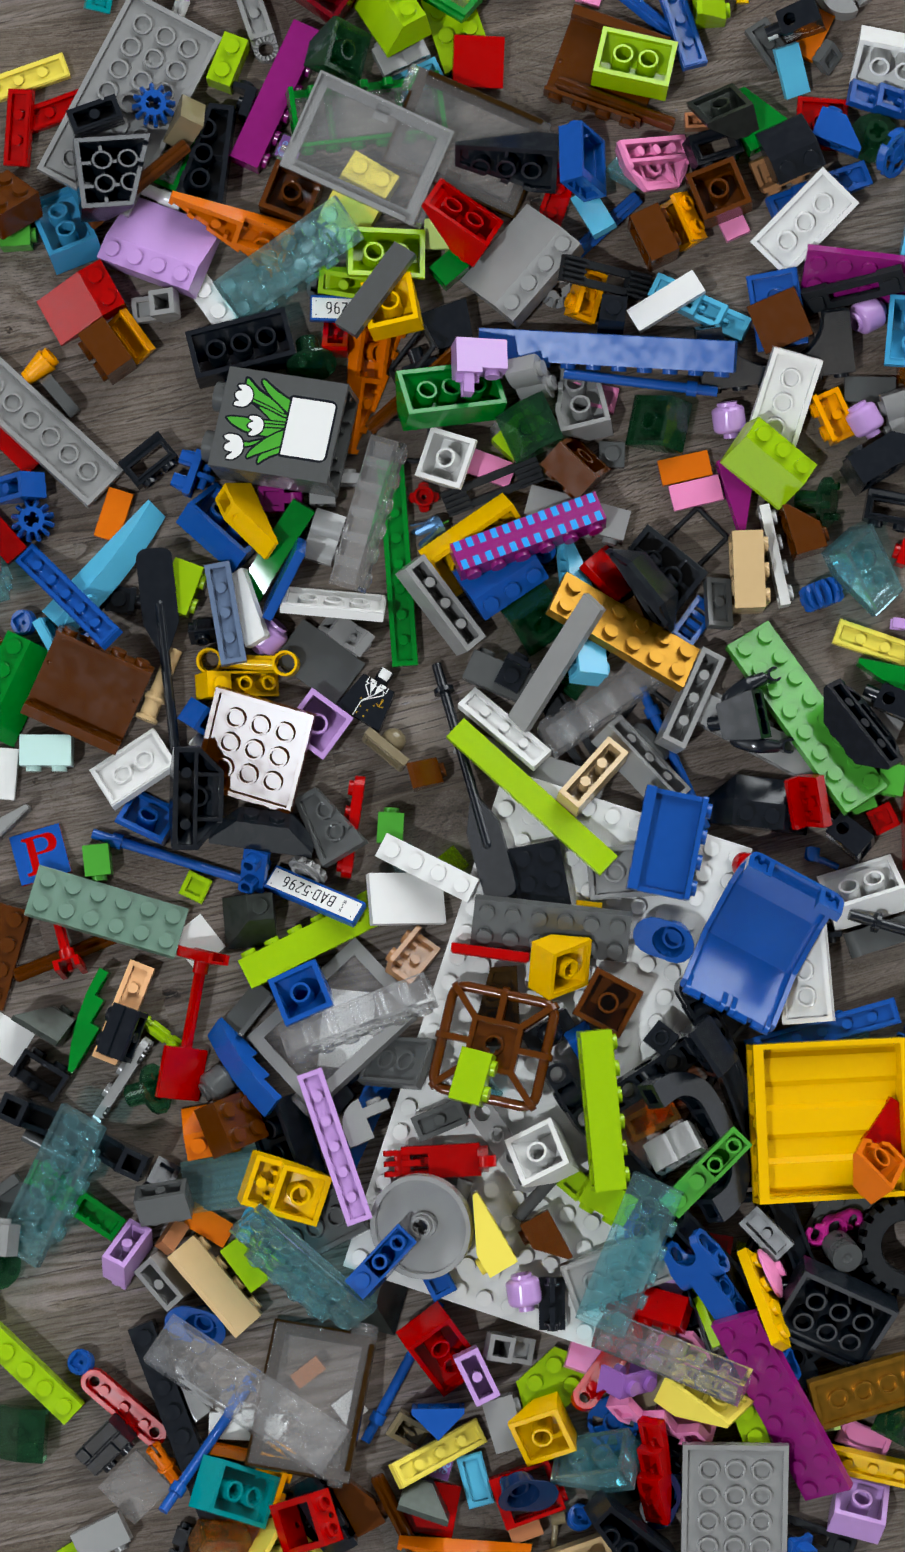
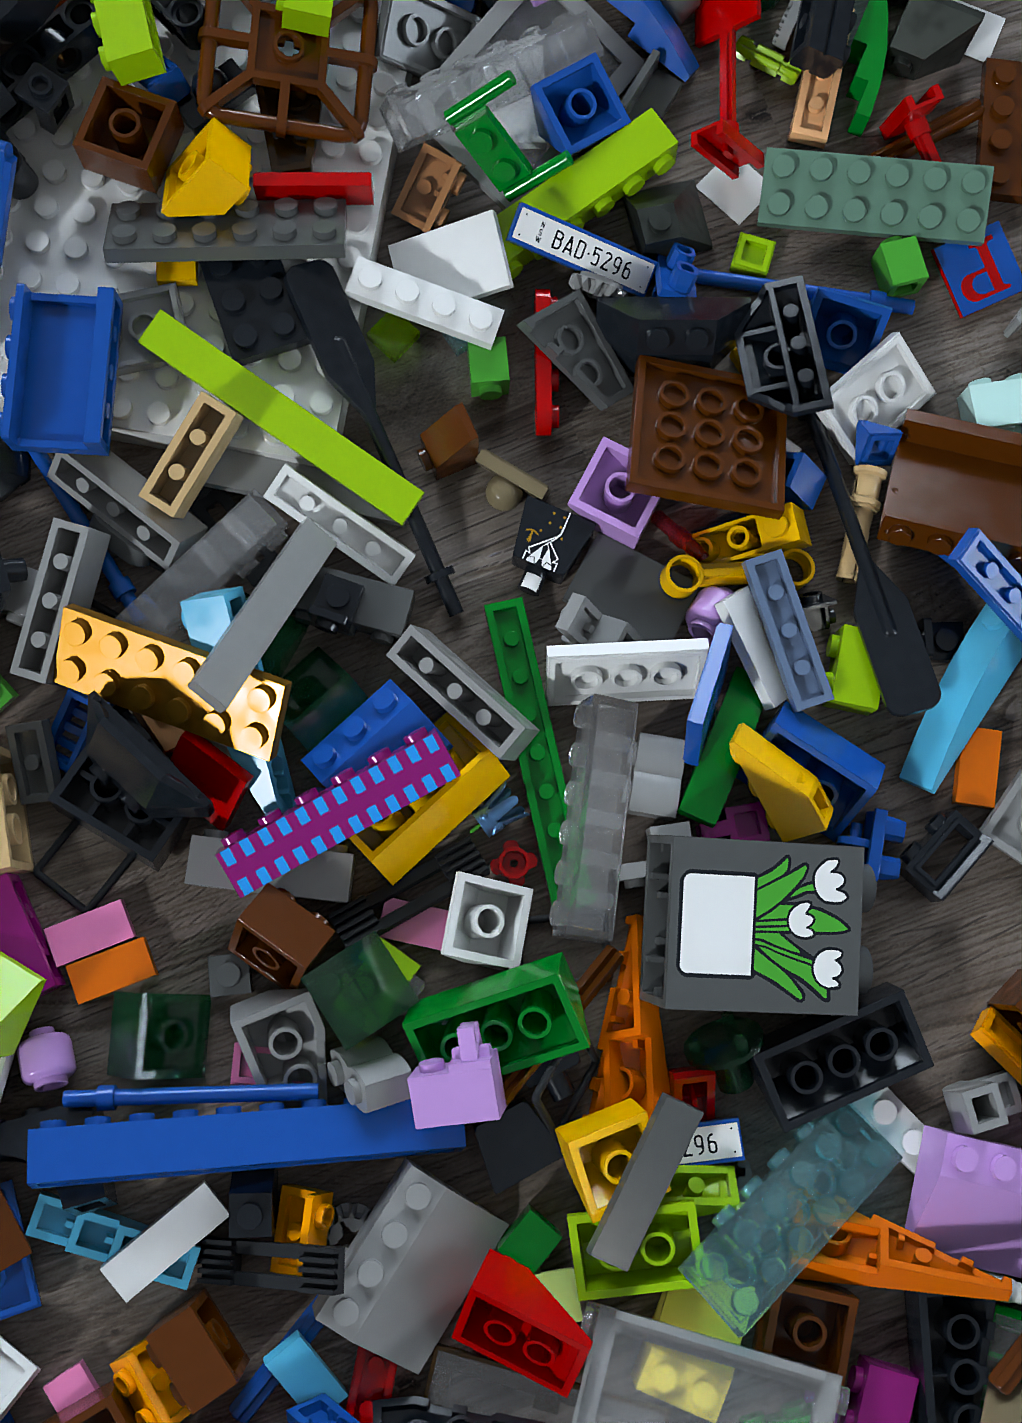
camera: 155 degrees right, 5 degrees down
(139, 736) = (875, 443): none -> blue slope
(279, 690) = (679, 536): none -> clear red piece
(364, 965) = (493, 146): none -> green plate
(664, 939) = (51, 236): blue piece -> none

